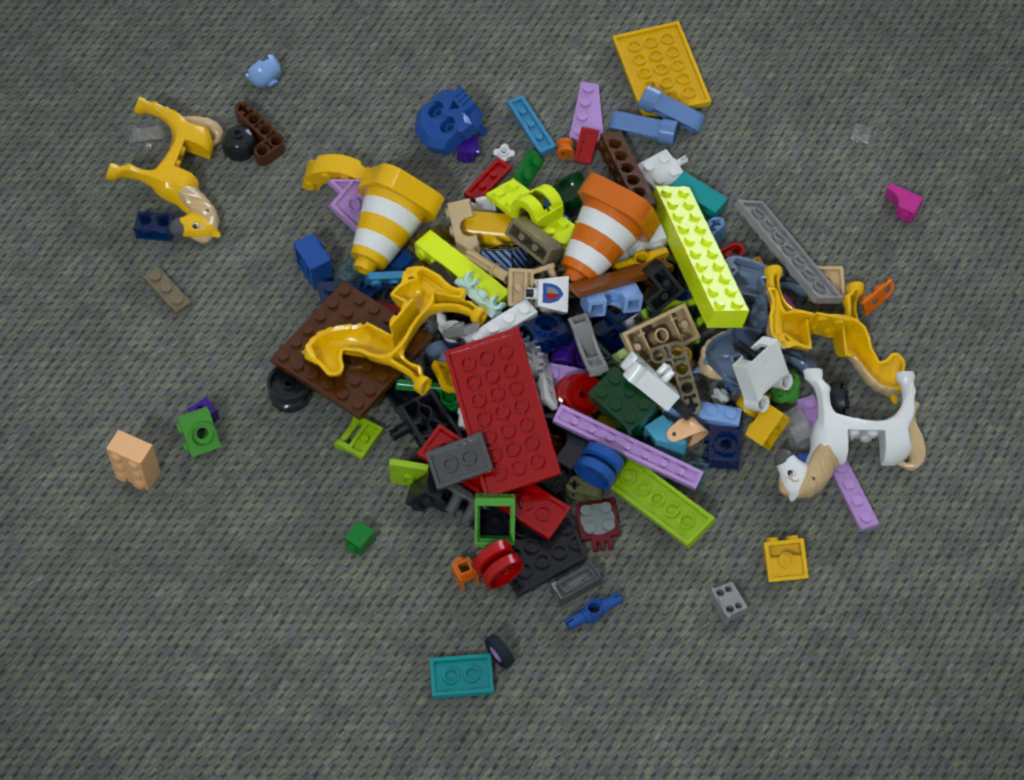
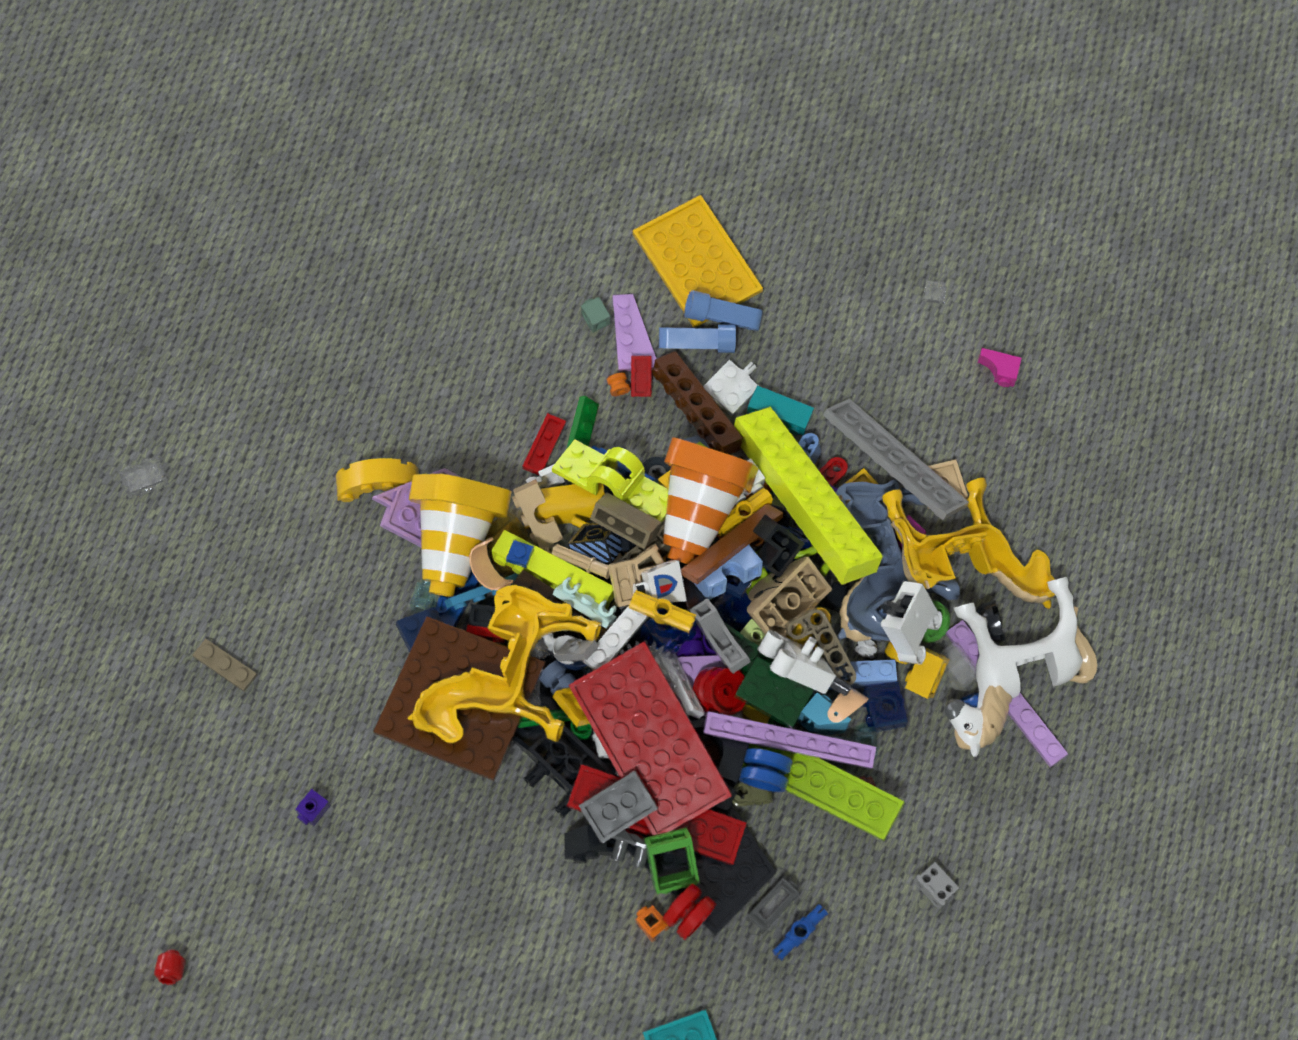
camera: 20 degrees left, 10 degrees up
(43, 509) = (169, 967): none -> red head
(133, 460) = (256, 889): light nougat brick -> none
(156, 226) = (187, 595): clear blue brick -> none
(174, 183) = (196, 537): yellow animal -> none
(189, 425) = (306, 831): bright green brick -> none
(239, 143) = (251, 462): black cylinder -> none
(264, 72) = (255, 368): light blue cylinder -> none
(270, 141) = (267, 441): reddish brown beam -> none
(287, 392) = (397, 767): black wheel -> none
(313, 260) = (381, 593): blue brick -> none
(359, 538) = (528, 913): green brick -> none
(363, 440) = (497, 796): lime plate -> none
(402, 248) = (484, 570): none -> light nougat piece
(406, 472) = (560, 824): lime plate -> none
(437, 249) = (520, 554): none -> blue plate
(448, 121) = (470, 395): blue brick -> none
(469, 150) = (511, 409): dark purple brick -> none
(499, 651) = (715, 1006): black bush -> none
(504, 156) = (553, 410): white plate -> none
(531, 125) = (573, 363): dark azure plate -> none
(535, 306) = (649, 605): none -> yellow piece
(561, 92) = (595, 314): none -> sand green brick
(568, 188) = (643, 436): dark green cylinder -> none
(598, 523) = (775, 828): piece -> none
(785, 559) = (982, 821): yellow plate -> none
(877, 293) = (1001, 483): orange piece -> none

